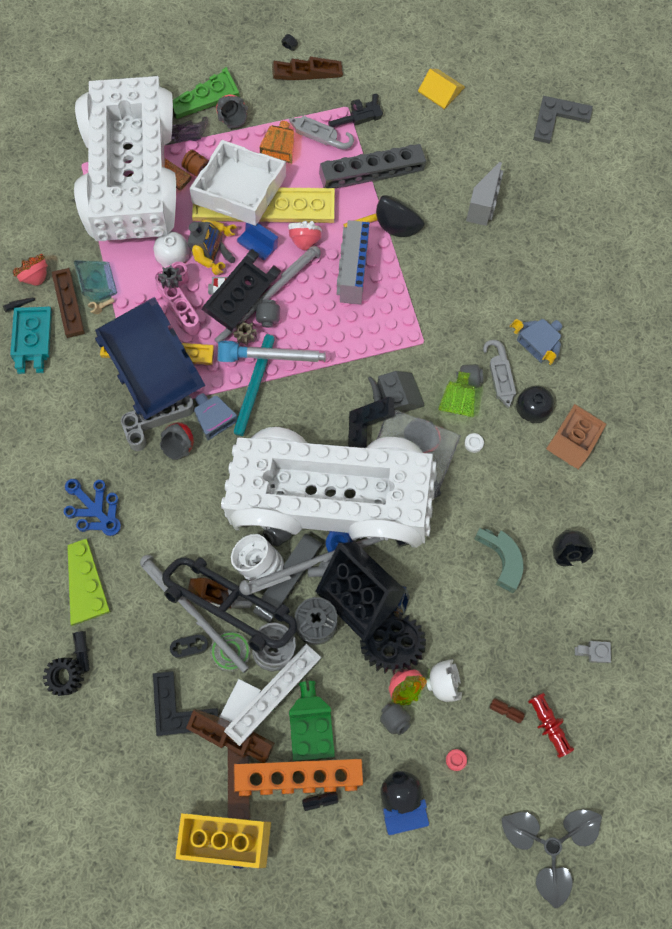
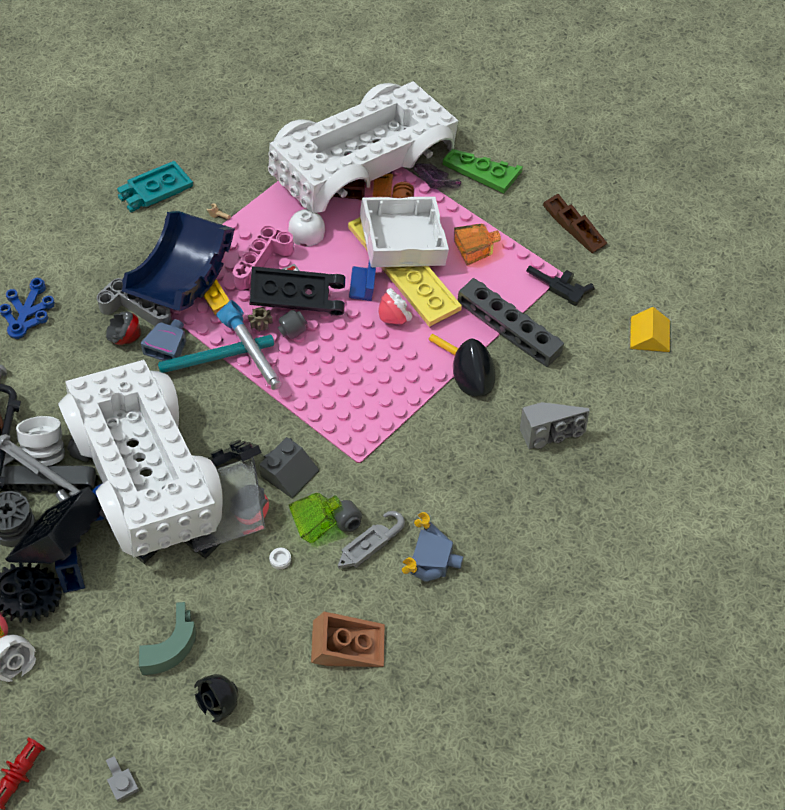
camera: 60 degrees right, 15 degrees down
(16, 304) = (180, 161): black helmet -> none
(32, 271) = (215, 151): coral hair -> none
(68, 303) = (205, 190): reddish brown plate -> none
(95, 279) = (235, 192): clear light blue slope -> none
(167, 273) = (267, 233): dark grey gear -> none
(205, 242) = (328, 243): torso -> none
(226, 254) = (335, 266): dark grey helmet -> none
(231, 111) = (478, 192): dark grey hair -> none
(289, 42) = (590, 196): black axle -> none
(312, 252) = (382, 325): light grey bar -> none
(319, 132) = (513, 266): light grey plate -> none
(352, 262) = (389, 356): light grey brick -> none
(510, 712) = (13, 733): copper piece -> none
(535, 404) = (358, 588): black cylinder -> none
(554, 107) = (702, 433): dark grey plate -> none

